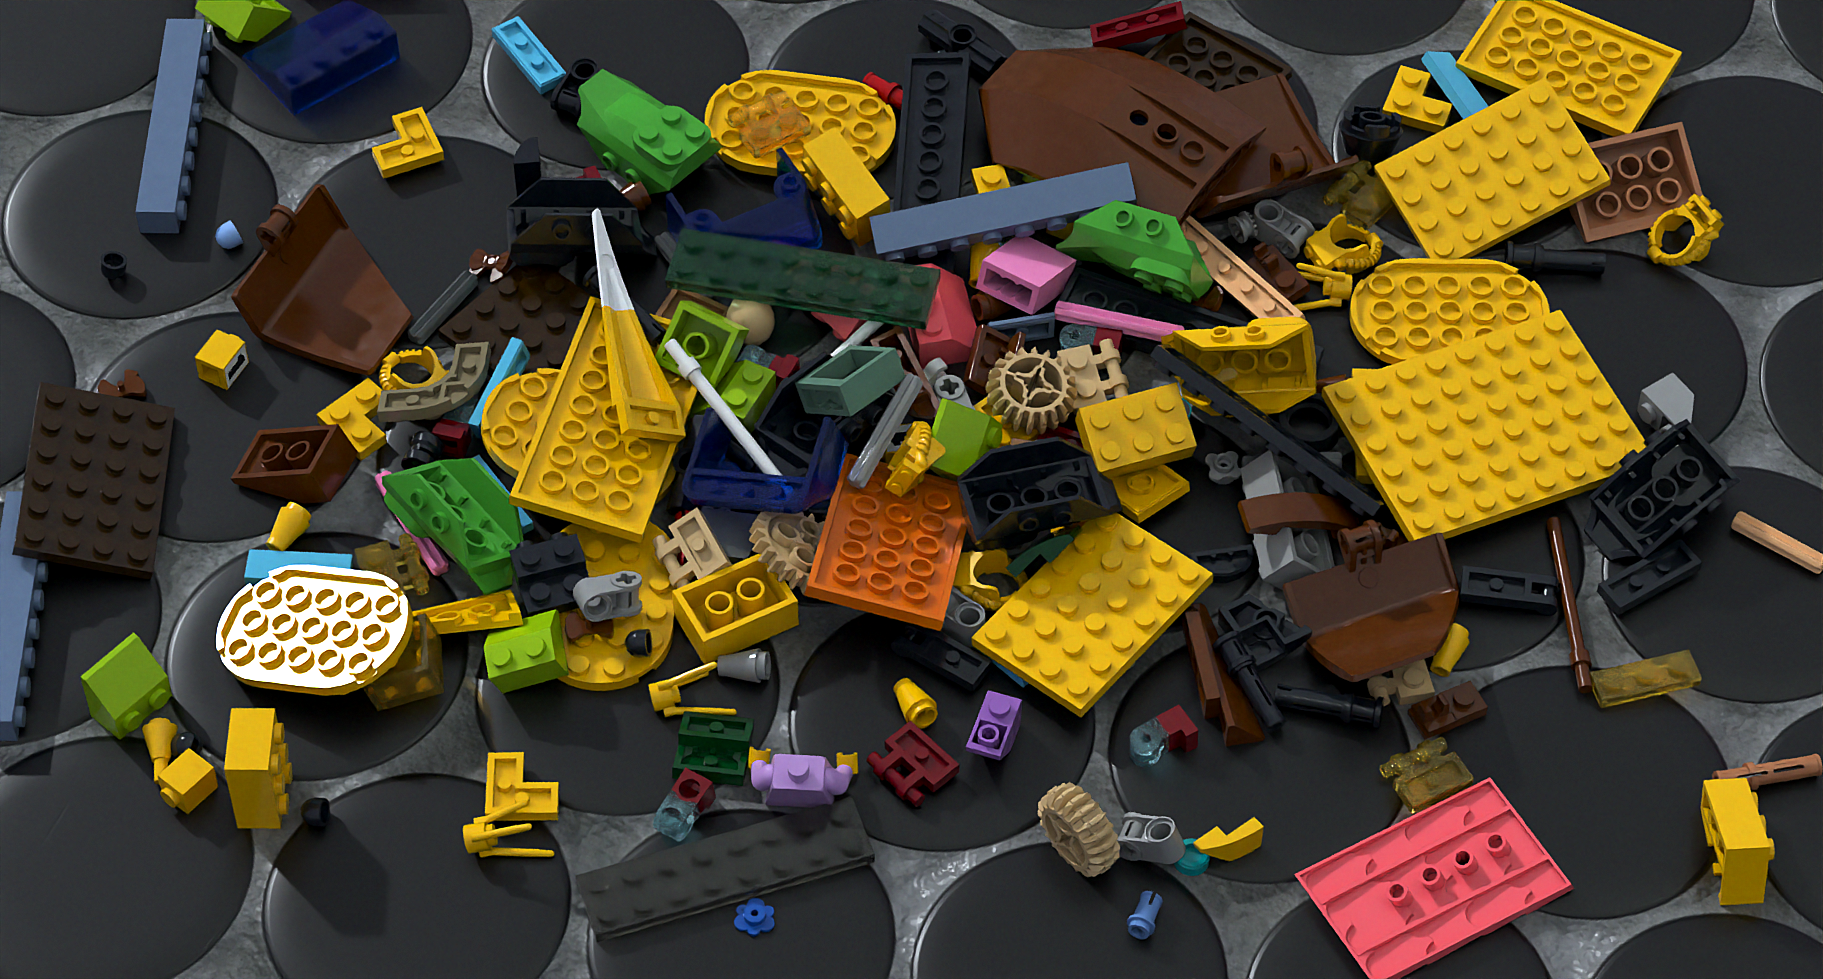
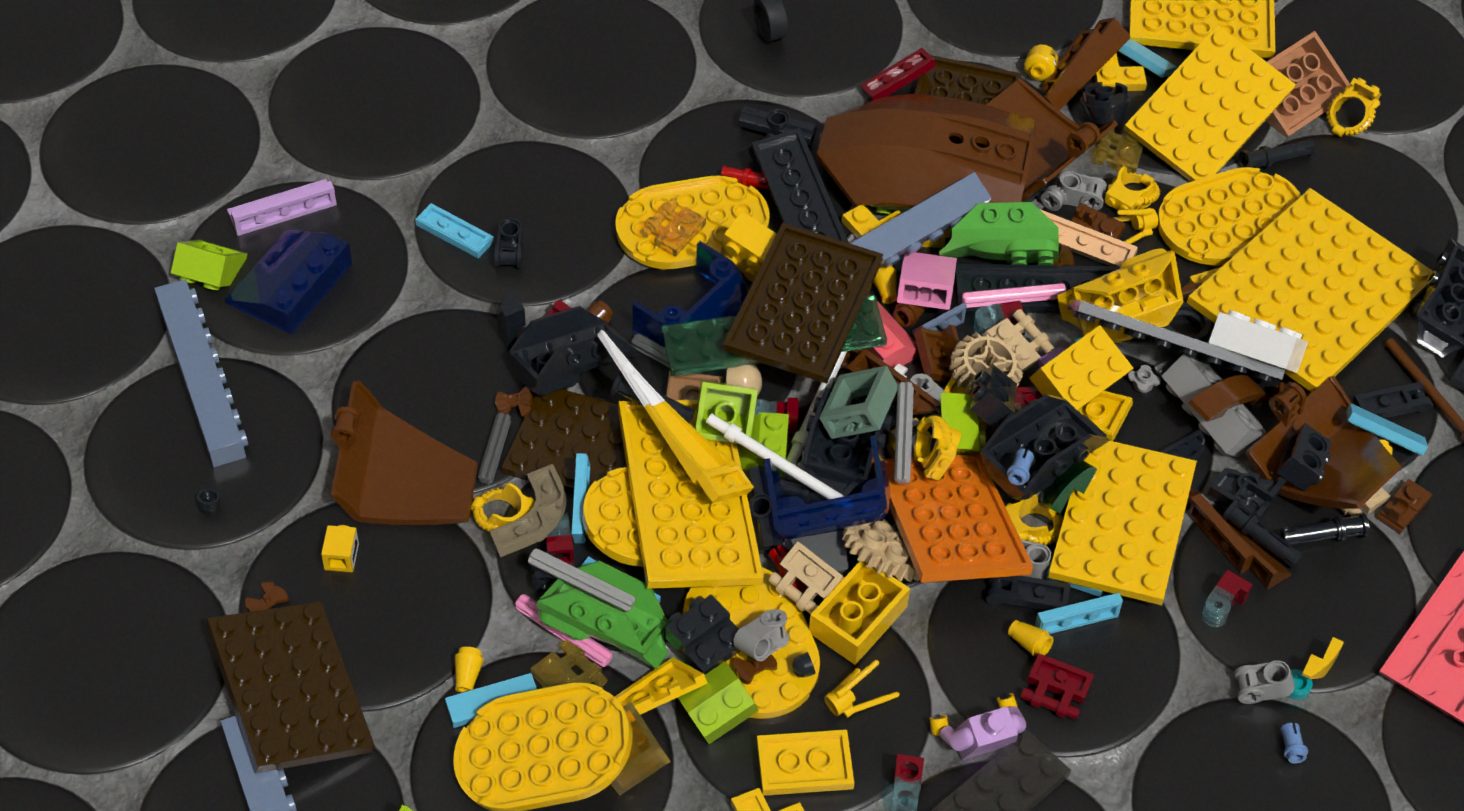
camera: 25 degrees left, 0 degrees up
(228, 236) = (291, 446): light blue hinge -> none
(297, 462) = (446, 613): reddish brown slope -> none
(354, 414) = (467, 562): yellow plate -> none
(413, 149) = (404, 328): yellow plate -> none
(449, 474) = (581, 580): none -> light grey axle
(589, 745) = (805, 762): none -> yellow plate
(640, 134) = (582, 265): bright green slope -> none
(714, 747) = (899, 729): dark green slope -> none
(746, 665) = (889, 653): light grey cone -> none
(847, 249) = (803, 302): none -> dark brown plate
(970, 694) = (1080, 614): none -> medium azure tile
(979, 513) = (1019, 471): none -> medium blue pin
(995, 726) = (1105, 635): medium lavender slope -> none
(1004, 421) = (993, 395): none -> black brick
(1078, 829) = (1216, 694): tan gear -> none
(1327, 61) = (1040, 62): none -> yellow head
(1346, 612) = (1305, 457): none -> black brick
(1362, 462) = (1259, 340): none -> white brick
(1377, 75) = (1083, 60): none -> reddish brown wedge
(1430, 782) = (1429, 564): clear yellow plate -> none
(1474, 615) = (1386, 429): none -> medium azure tile
(1666, 403) = (1420, 236): light grey slope -> none

